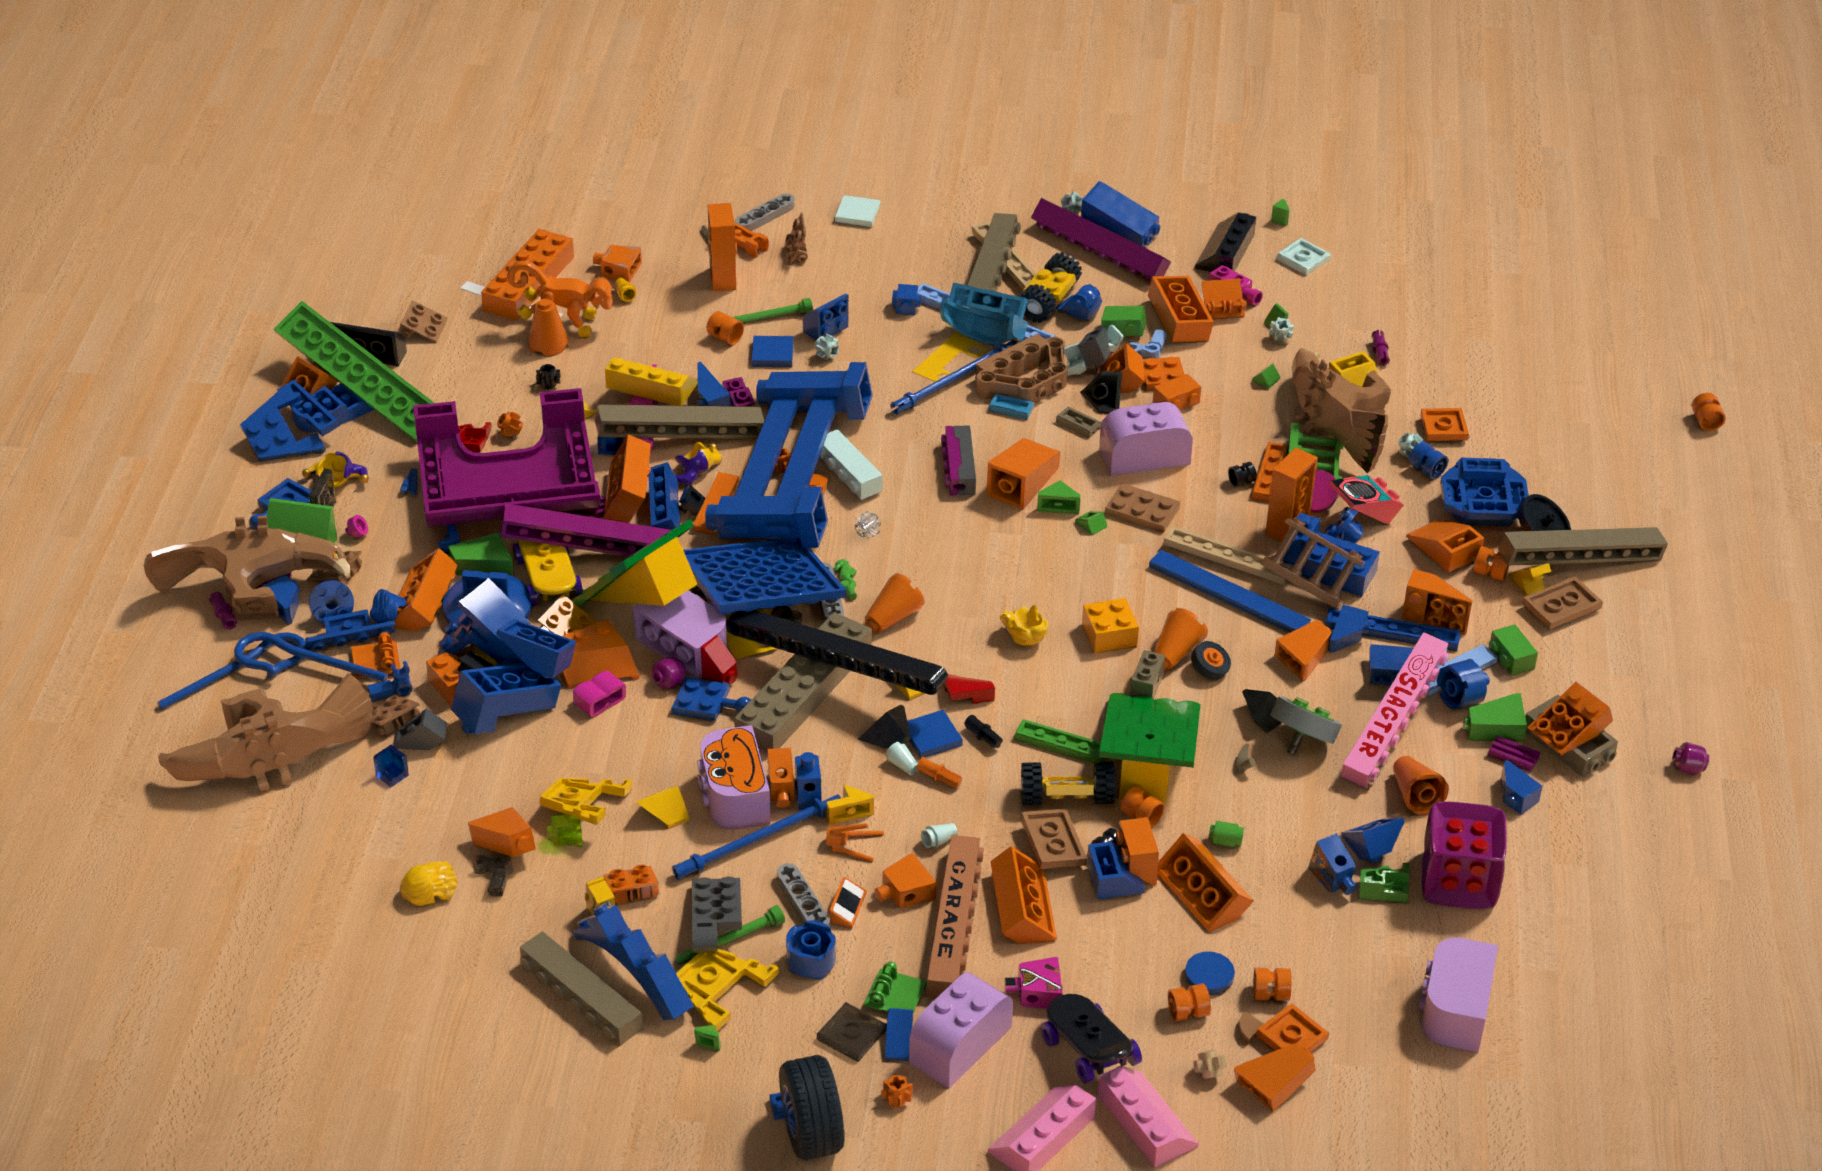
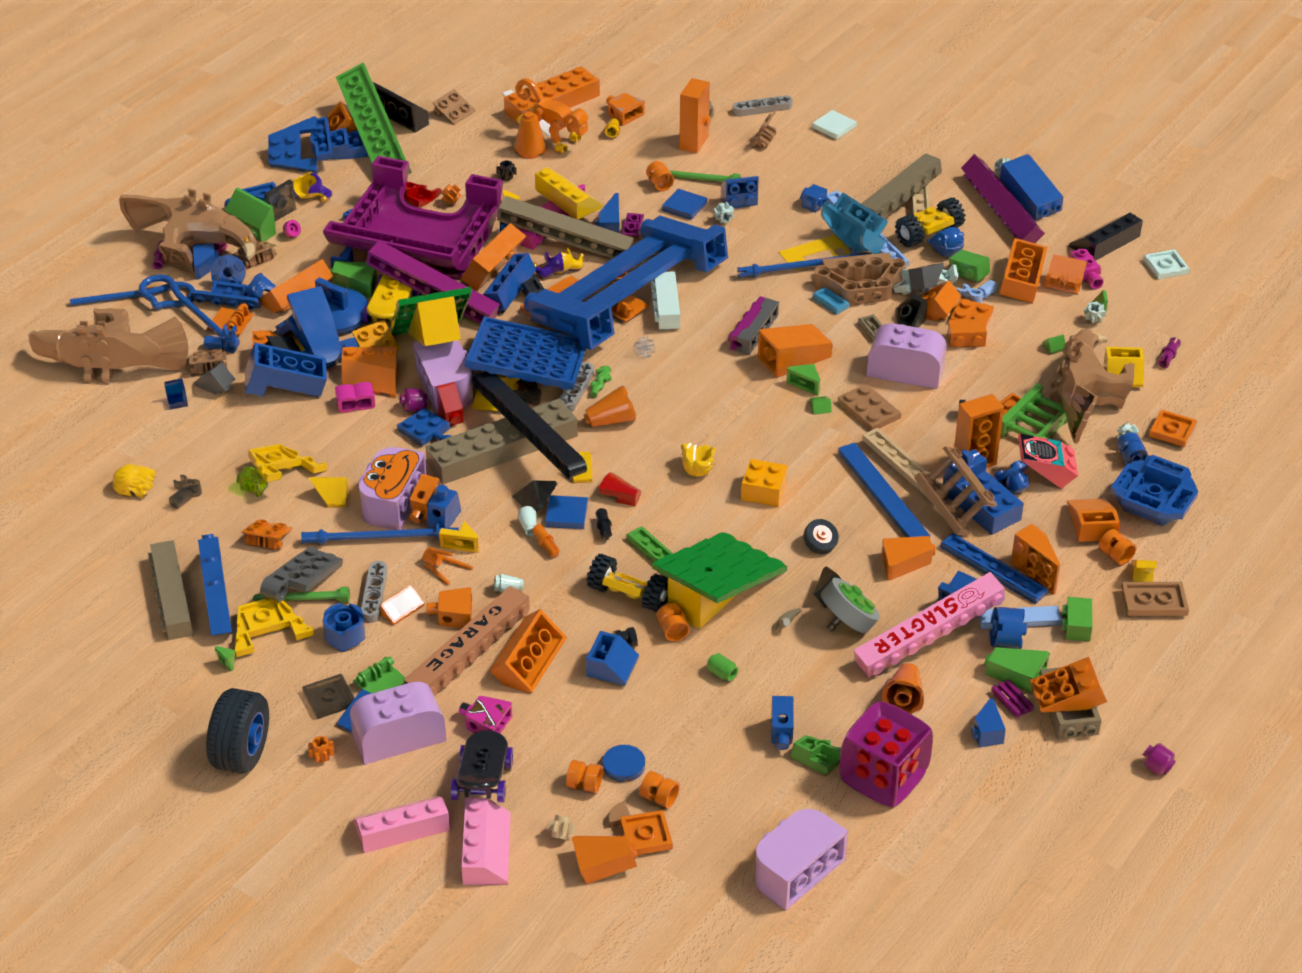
camera: 30 degrees right, 0 degrees up
(503, 833) = (208, 465): orange slope -> none
(538, 648) = (324, 347): blue slope -> none
(597, 894) = (229, 537): yellow piece -> none
(750, 240) = (729, 115): orange plate -> none
(1053, 838) = (587, 618): medium nougat plate -> none
(1139, 848) = (637, 650): orange slope -> none
(1148, 674) = (761, 529): dark tan brick -> none
(1180, 636) = (804, 510): orange cone -> none
(1202, 883) = (673, 695): orange slope -> none
(1280, 213) = (1172, 224): bright green slope -> none
(1323, 494) = (1009, 441): dark pink tile -> none
(1349, 628) = (950, 552): blue slope -> none
(1374, 838) = (835, 716): blue slope -> none
(1541, 514) = (1188, 530): black piece -> none
(1582, 546) = (1204, 559): dark tan brick -> none

